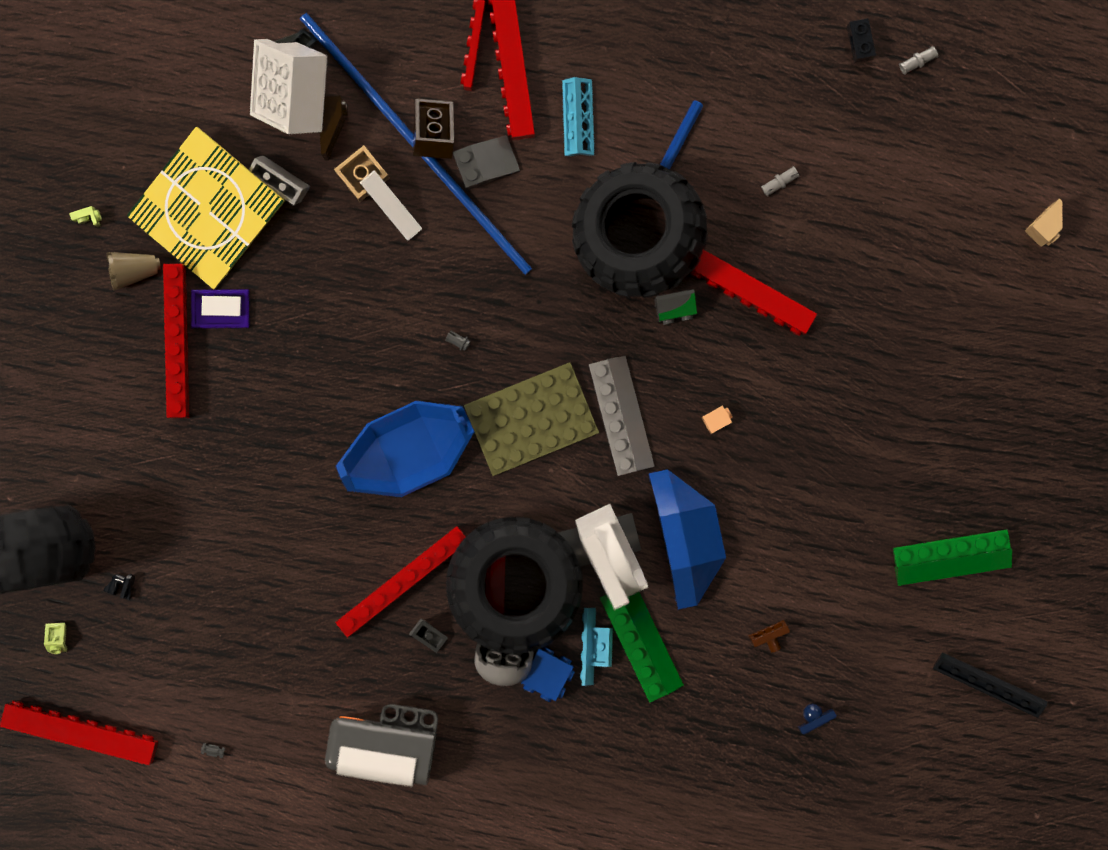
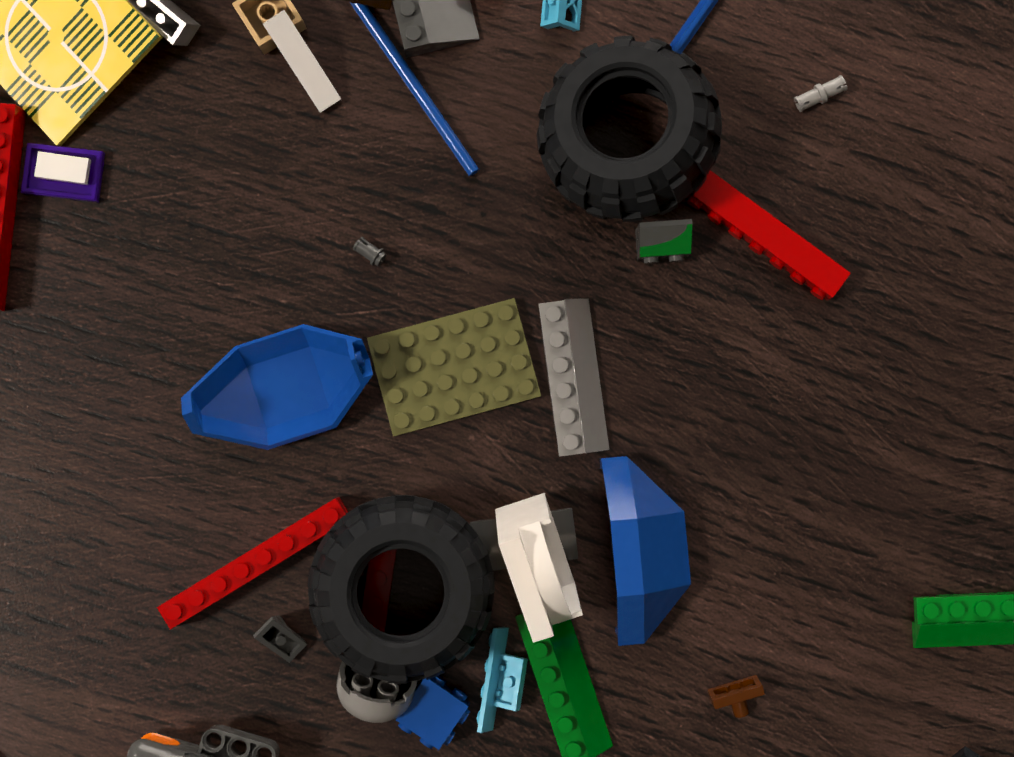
camera: 10 degrees right, 0 degrees up
(717, 419) = (700, 397): light nougat brick -> none

